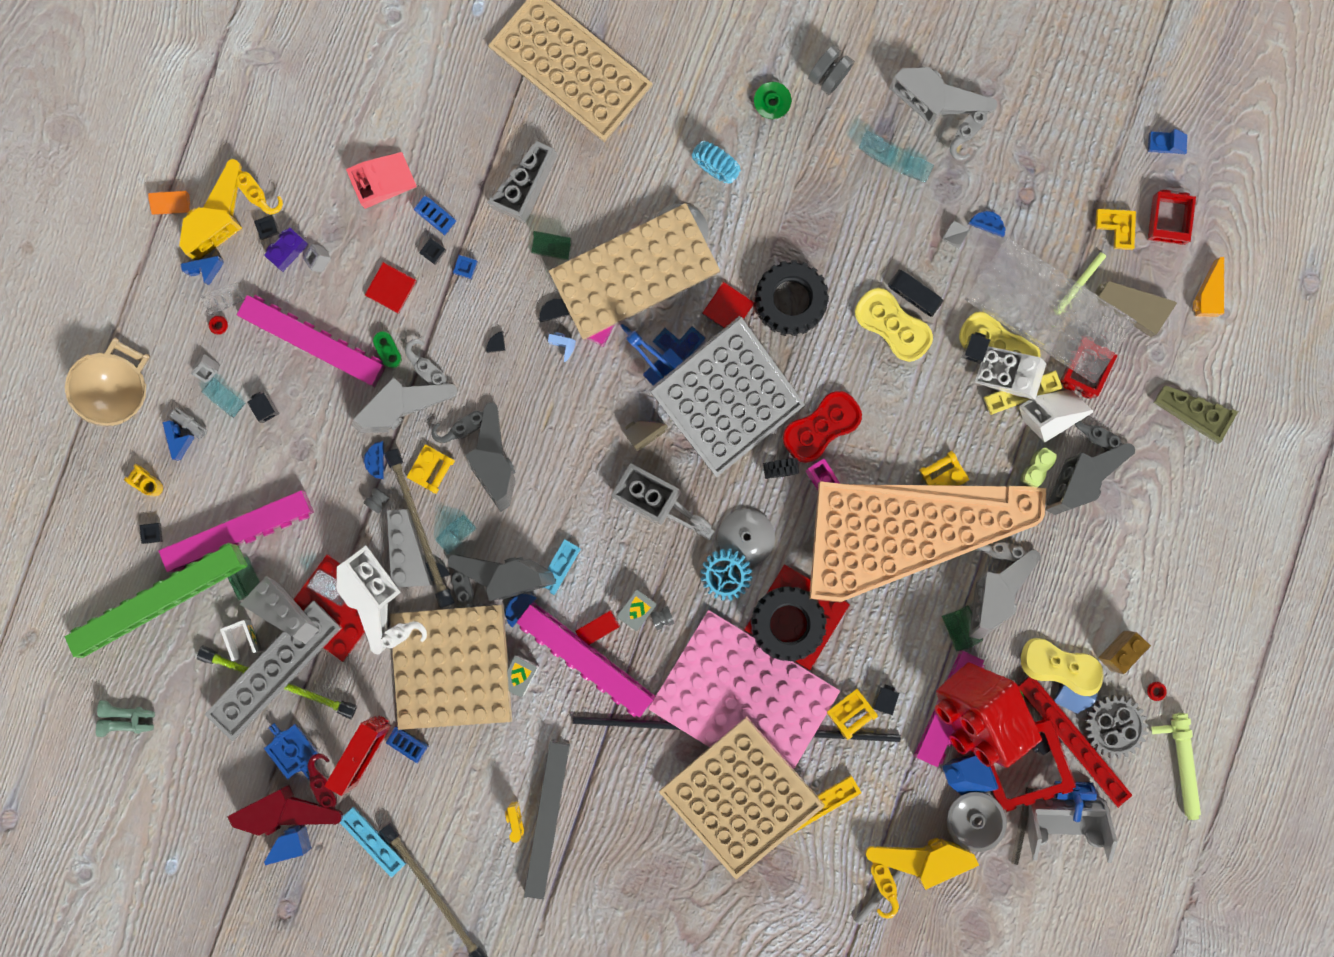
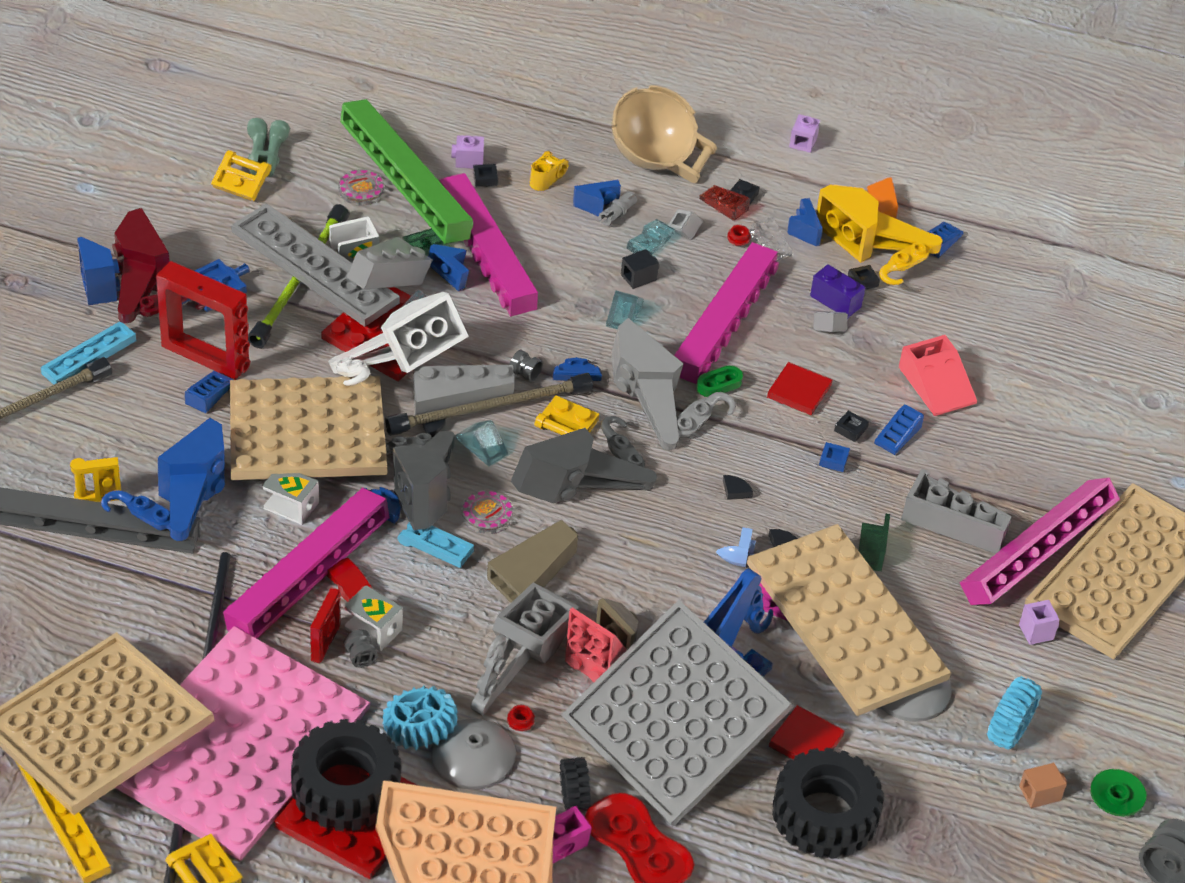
camera: 85 degrees right, 40 degrees down
(89, 261) = (804, 133): none -> lavender brick
(123, 547) = (468, 151): none -> lavender brick
(162, 317) = (746, 189): none -> black plate
(166, 636) = (361, 187): none -> clear tile
(167, 740) = (237, 181): none -> yellow plate
(179, 319) = (731, 203): none -> clear red slope
(218, 153) = (948, 234): none -> blue slope
(261, 565) = (449, 264): none -> blue slope
(308, 421) = (623, 307): none -> clear light blue slope
(511, 753) = (186, 477): none -> blue slope
(526, 529) = (487, 512): none -> clear tile
(550, 122) = (1039, 541): none -> dark pink brick
(584, 499) = (533, 560): none -> dark tan slope
(628, 133) = (1039, 622): none -> lavender brick
(649, 643) = (325, 625): none -> red tile
(666, 450) = (590, 646): none -> coral slope
(722, 500) = (520, 712): none -> red plate
(767, 150) = (1043, 785): none -> nougat brick

